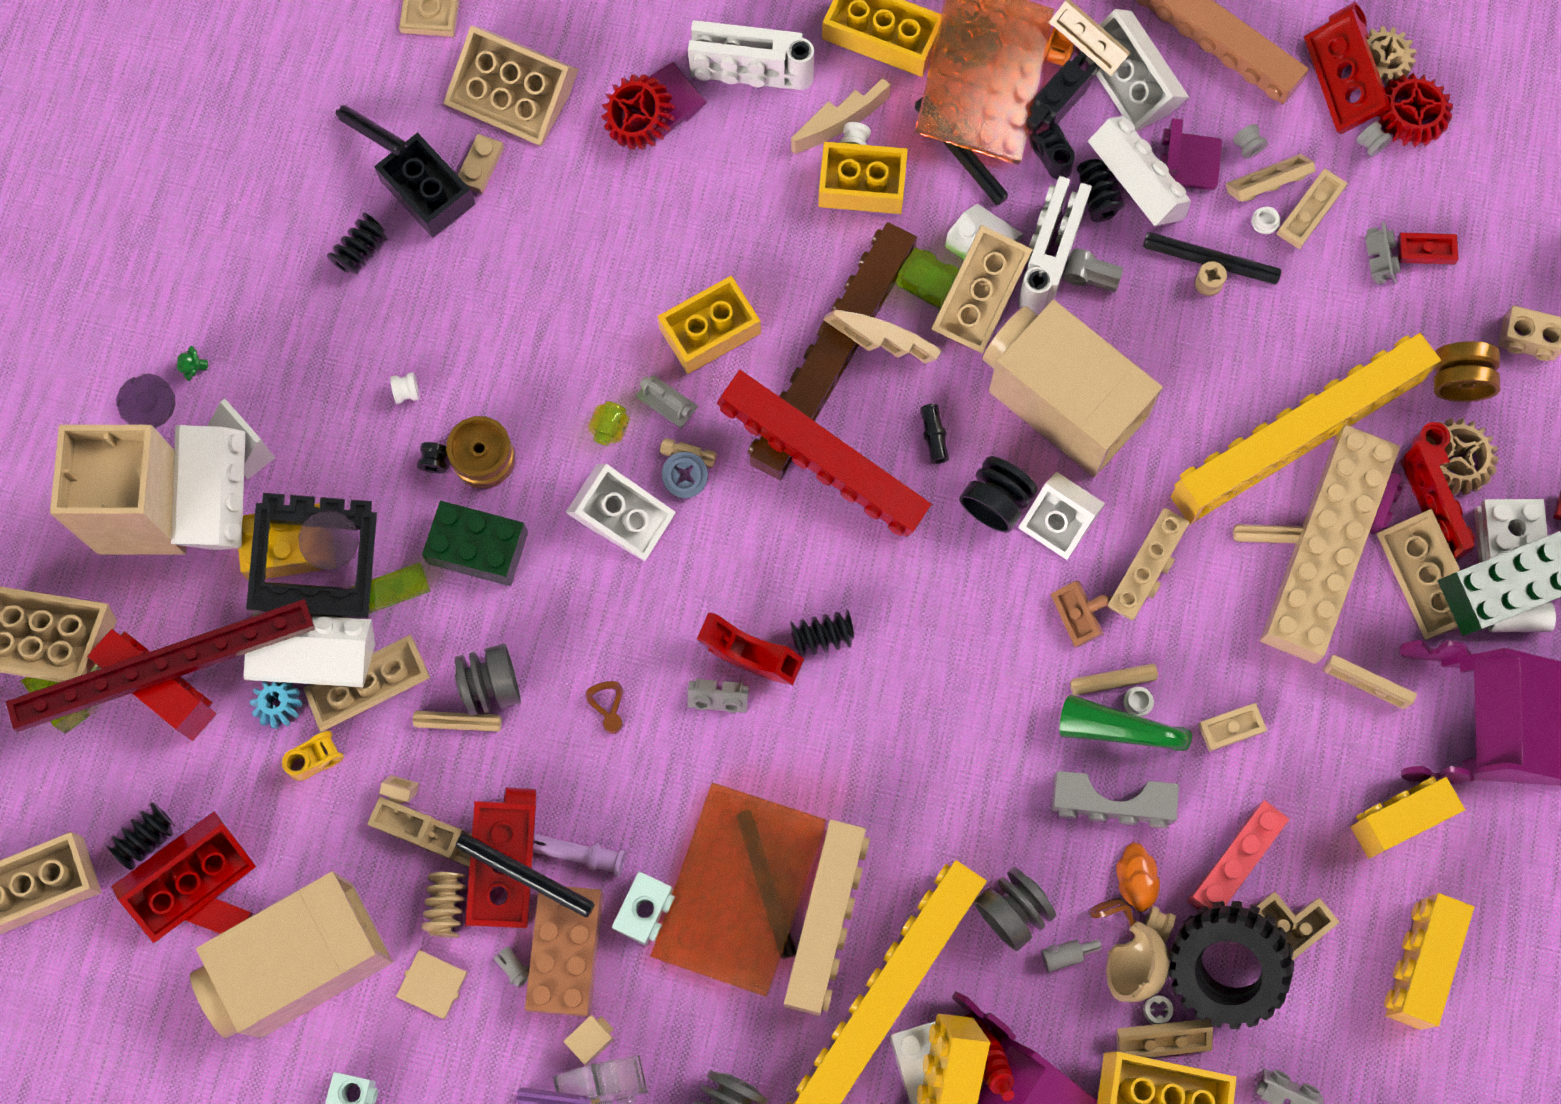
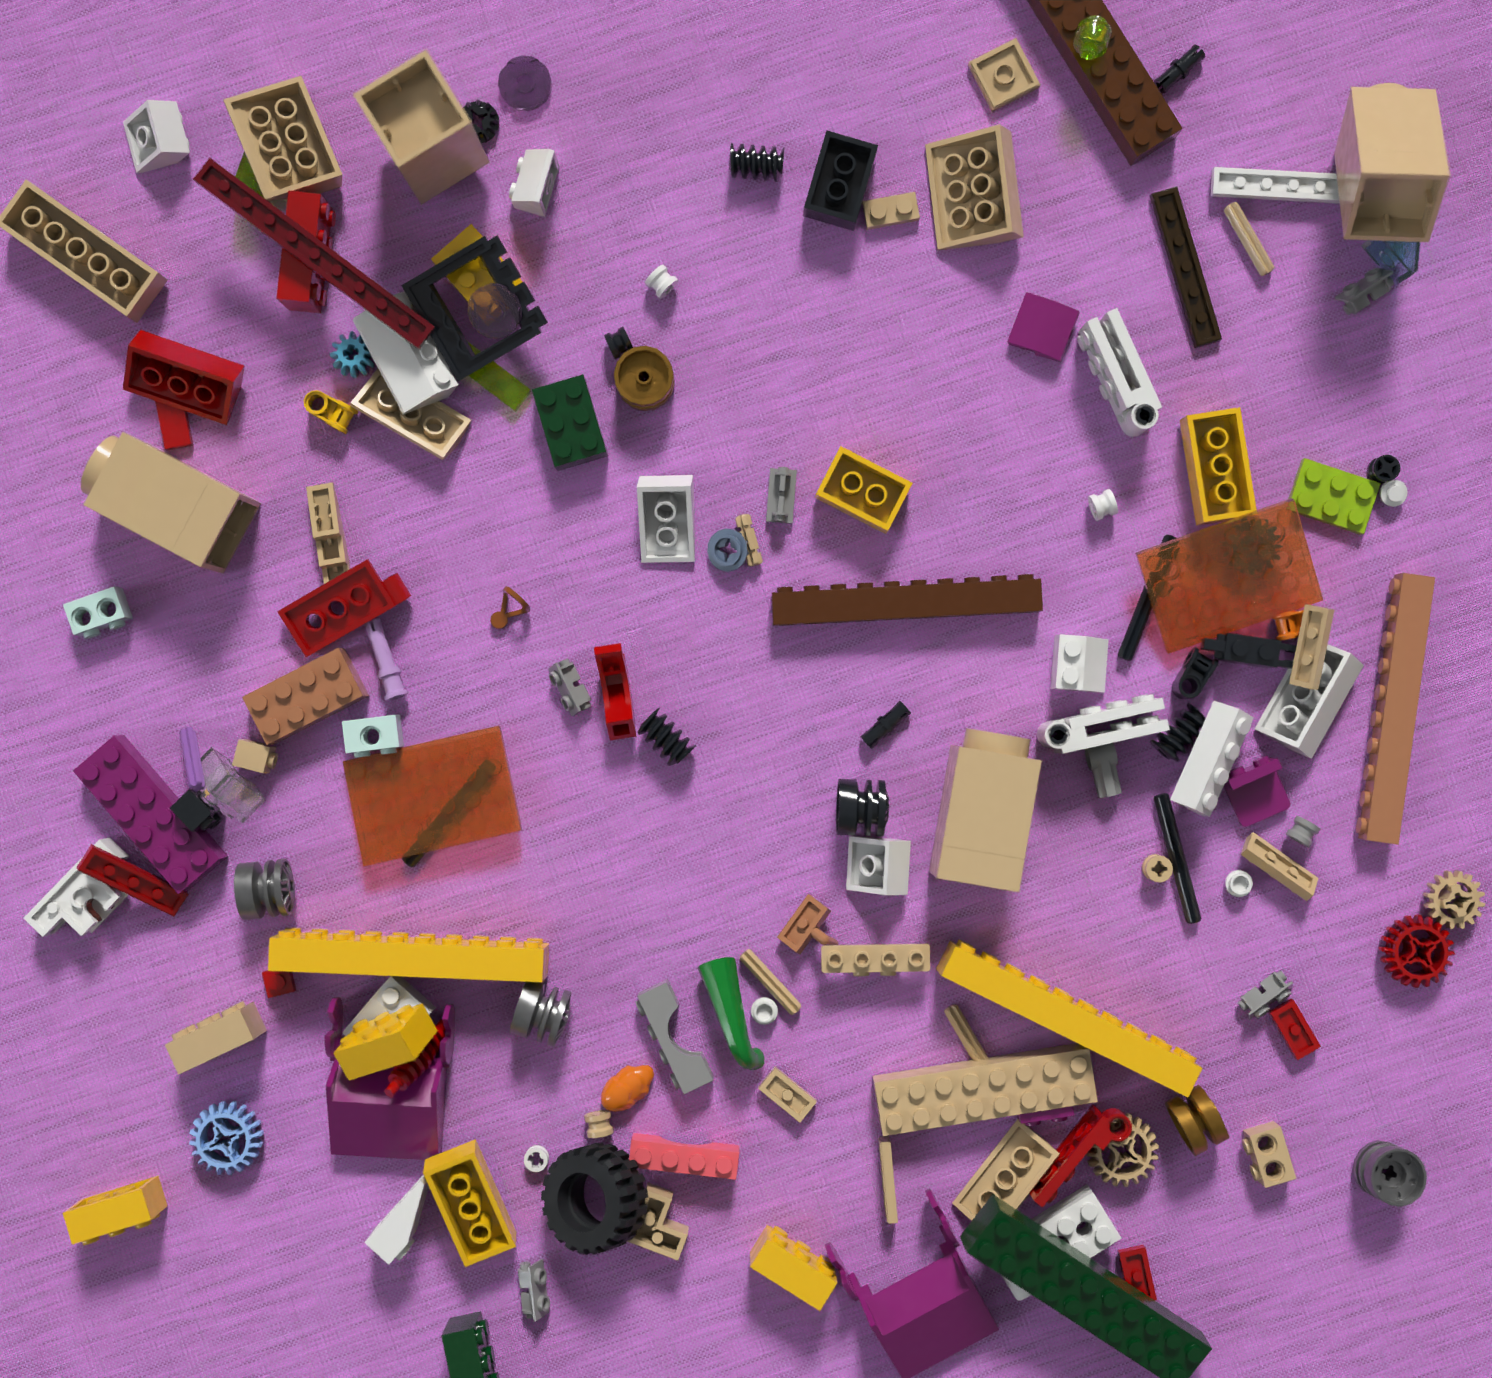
camera: 55 degrees right, 15 degrees up
(141, 836) = (191, 326): black piece -> none
(189, 363) = (575, 97): green plant -> none
(208, 487) = (474, 189): white slope -> none
(371, 130) = (858, 105): black axle -> none
(399, 789) = (347, 492): tan plate -> none
(431, 984) = (224, 612): tan piece -> none
(443, 904) = (283, 585): tan piece -> none
(457, 721) = (426, 501): tan axle -> none
(487, 679) = (462, 501): flat silver wheel -> none
(512, 967) = (272, 665): light grey pin -> none
(525, 875) = (335, 633): black axle -> none
(608, 423) = (732, 462): clear neon green head -> none
(646, 91) = (993, 311): red gear -> none
(823, 454) = (807, 650): red brick -> none
(824, 918) = (441, 877): tan brick -> none
(831, 119) = (1106, 476): tan slope -> none
(862, 177) = (1069, 533): yellow brick -> none
(873, 333) = (933, 630): tan slope -> none
(927, 277) = (1016, 642): clear neon green brick -> none
(981, 289) = (1027, 691): tan slope -> none
(1067, 954) = (536, 1069): light grey piece -> none
(1096, 911) = (599, 1081): dark orange piece -> none
(1138, 967) = (554, 1128): tan cylinder -> none
(1166, 1038) = (515, 1175): tan plate -> none
(1312, 208) = (1272, 915): tan plate -> none
(1332, 49) = (1438, 858): red hinge -> none
(1374, 139) = (1368, 932): light grey wheel -> none
(1428, 961) = (691, 1341): yellow brick -> none

